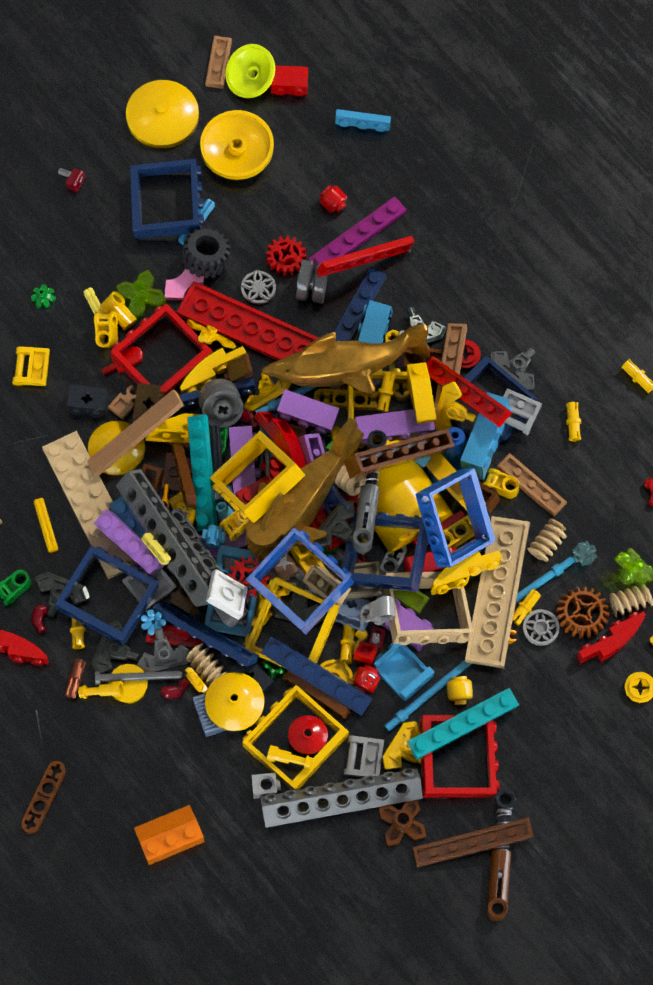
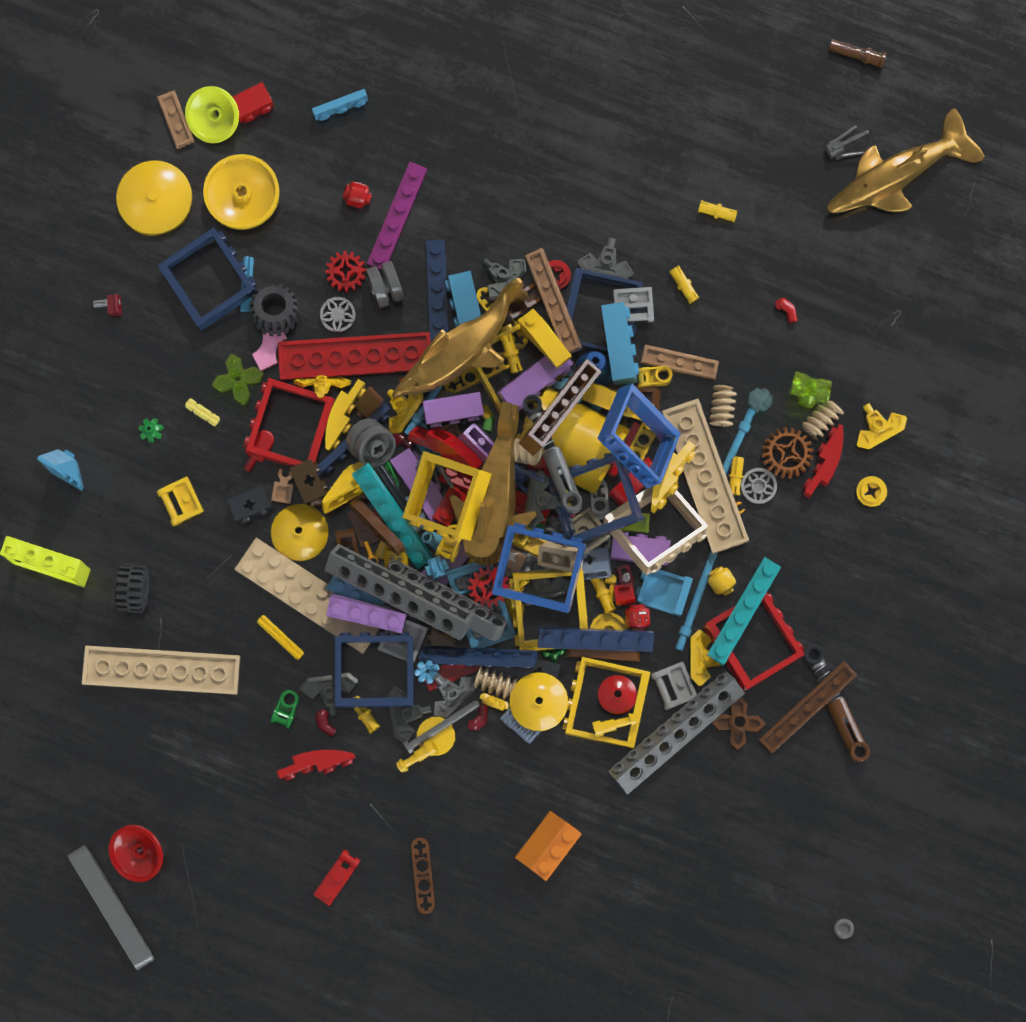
camera: 30 degrees left, 10 degrees up
(75, 678) = (388, 758): copper axle -> none
(105, 328) = (225, 427): yellow piece -> none
(116, 302) = (223, 405): yellow piece -> none
(135, 433) = (314, 514): medium nougat tile -> none
(156, 549) = (395, 608): light yellow axle -> none
(227, 594) = (482, 615): white tile -> none
(258, 779) = (597, 761): light grey brick -> none
(364, 256) = (420, 236): red tile -> none
(379, 610) = (619, 555): light grey piece -> none
(450, 409) = (576, 339): yellow piece -> none
(471, 394) = (583, 315): red plate -> none

